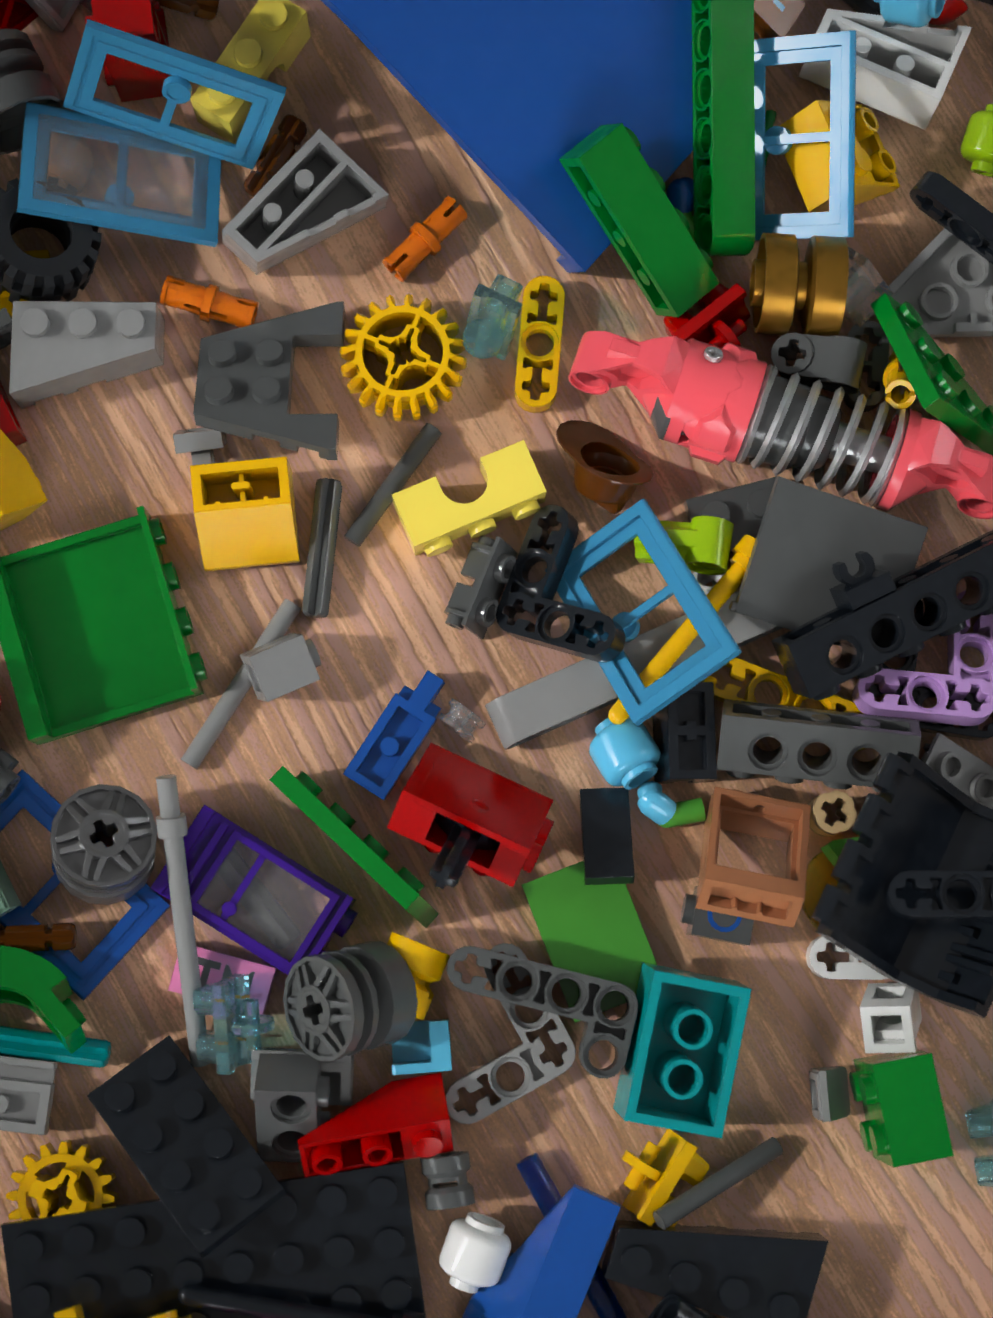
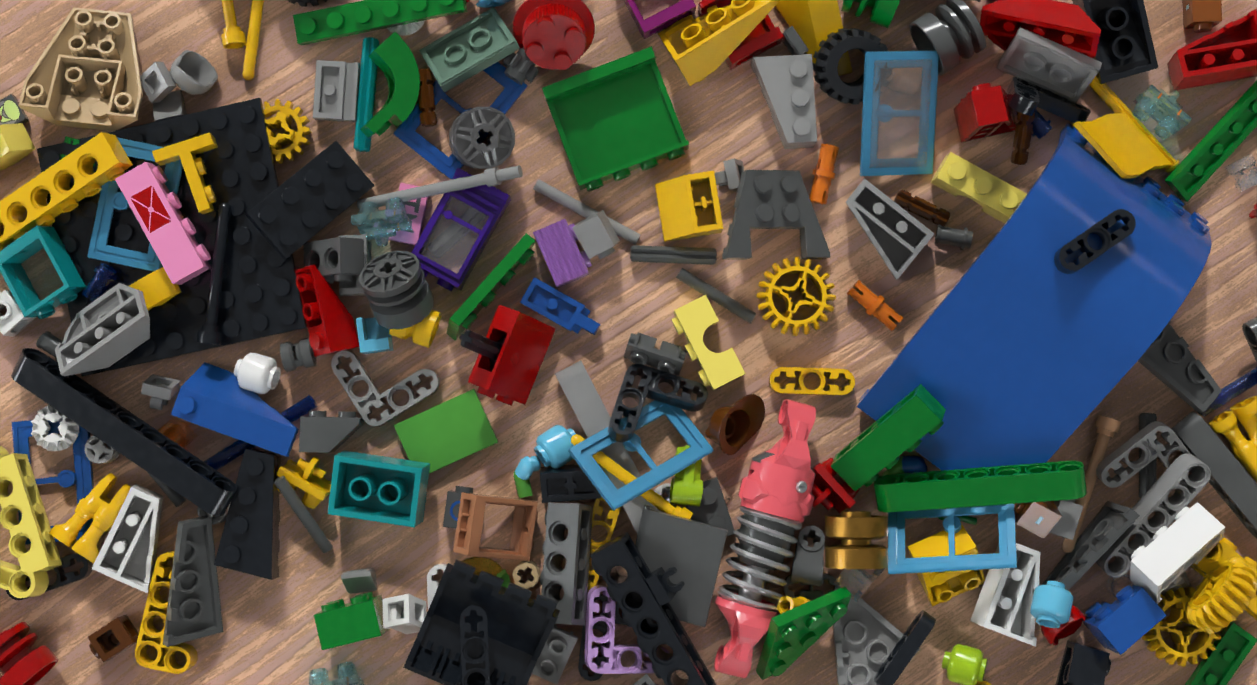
camera: 90 degrees right, 5 degrees up
(184, 67) = (969, 92): dark azure door -> none
(306, 725) = (562, 253): none -> medium lavender brick
(326, 107) = (954, 237): none -> dark grey pin
(461, 720) = (570, 346): clear bush -> none
(493, 319) = (820, 349): clear light blue hips -> none
(539, 997) = (404, 401): dark grey beam -> none
(583, 1137) = (326, 433): none -> dark grey slope
(606, 836) = (505, 438): black tile -> none

